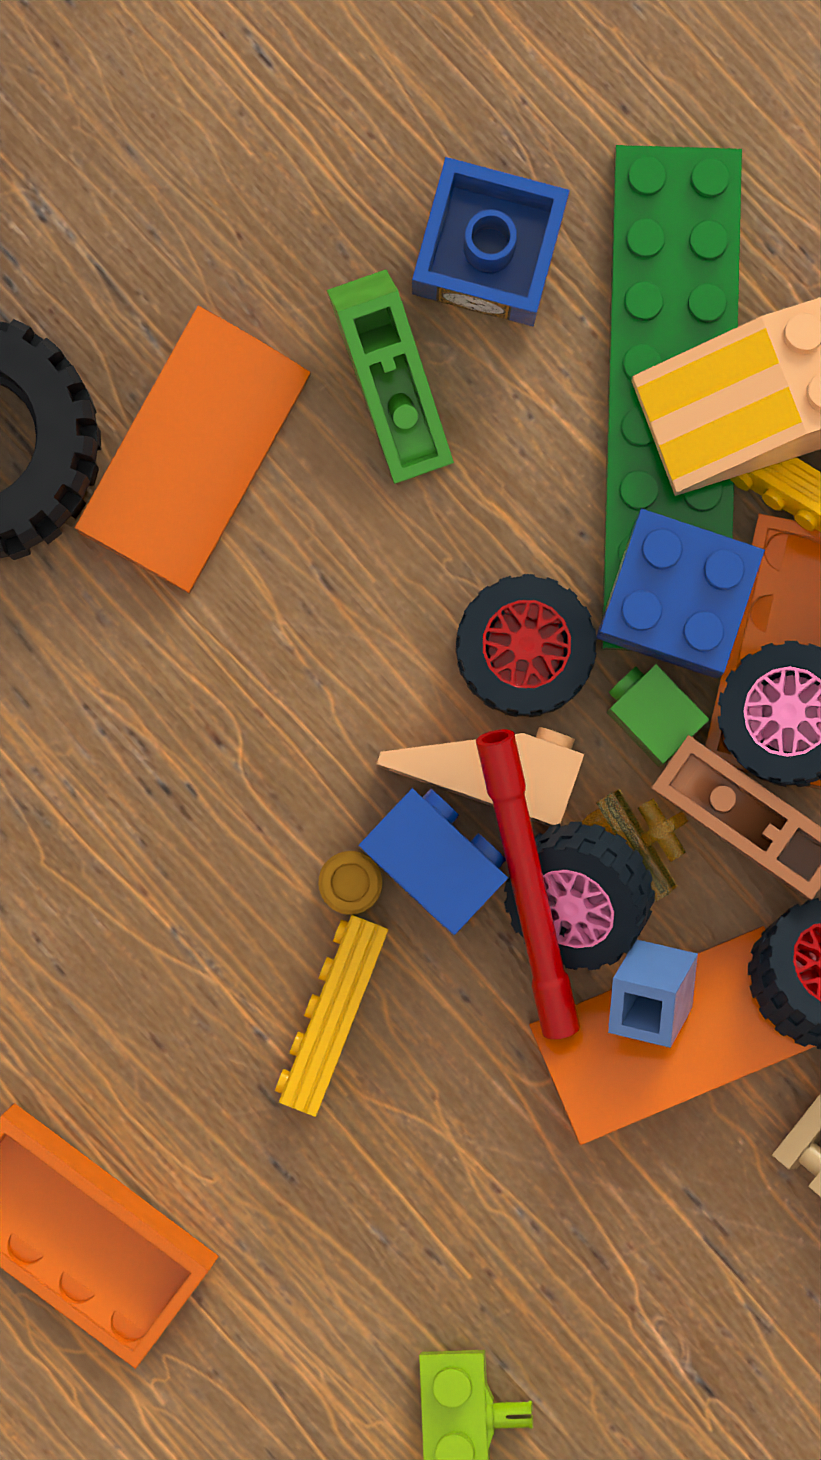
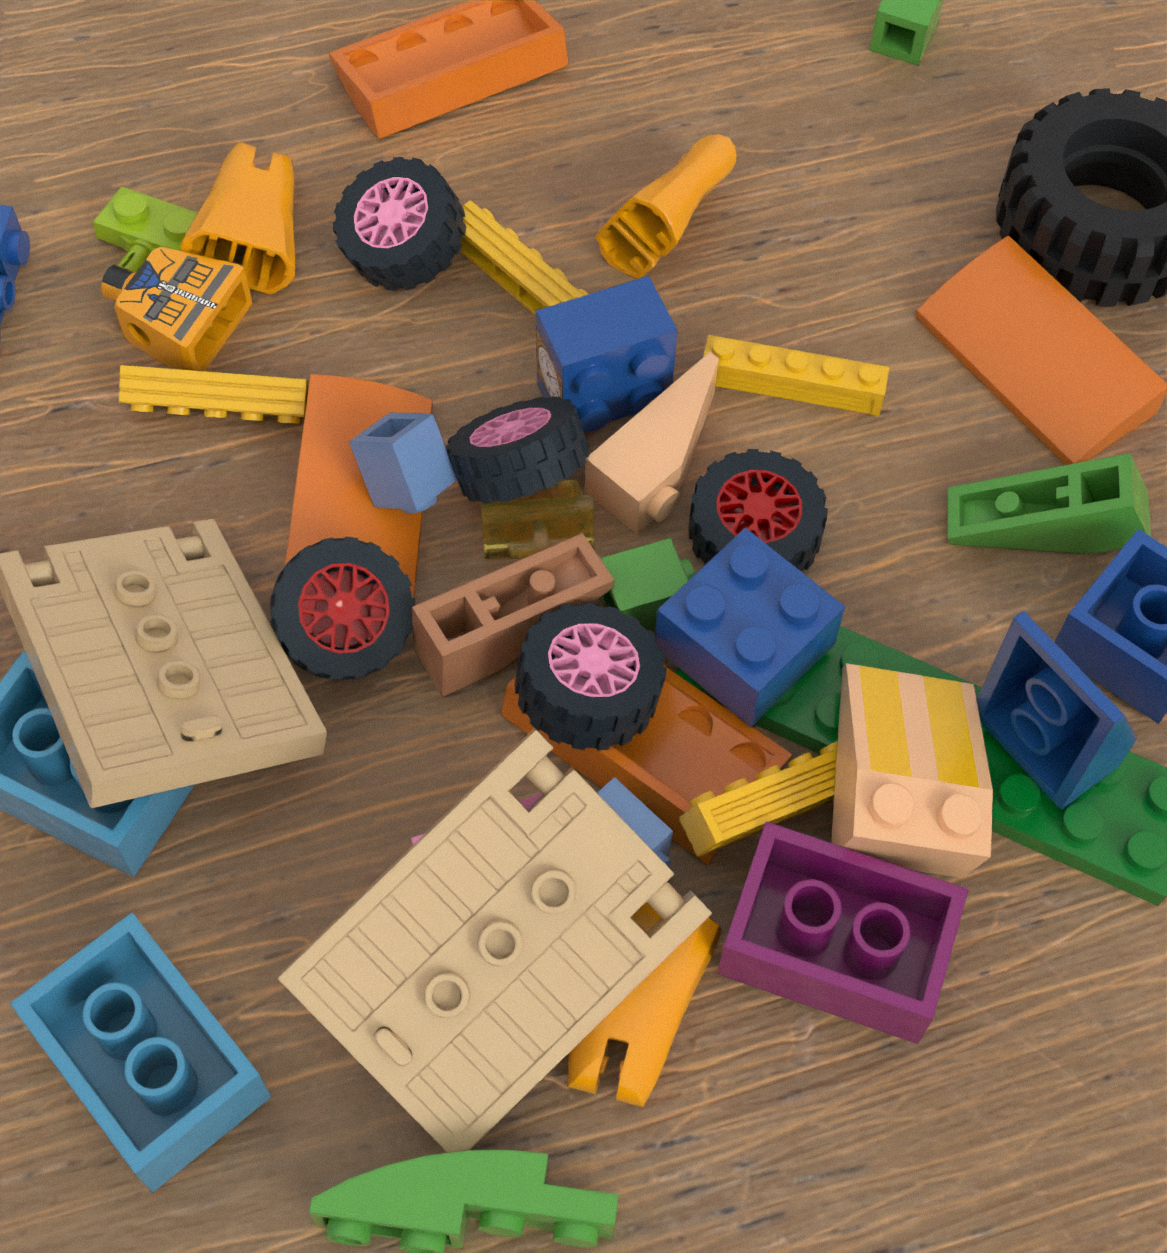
camera: 115 degrees right, 25 degrees down
(212, 895) = (659, 213): none -> light orange piece
(335, 681) = (799, 375): none -> yellow piece
(352, 1157) = (374, 228): none -> black wheel
(409, 1322) = (253, 212): none -> light orange piece
(507, 788) = (641, 386): red piece -> none
(553, 1332) = (179, 305): none -> light orange torso
(630, 1236) = (213, 392): none -> yellow piece
(650, 284) = (1051, 715): none -> blue slope

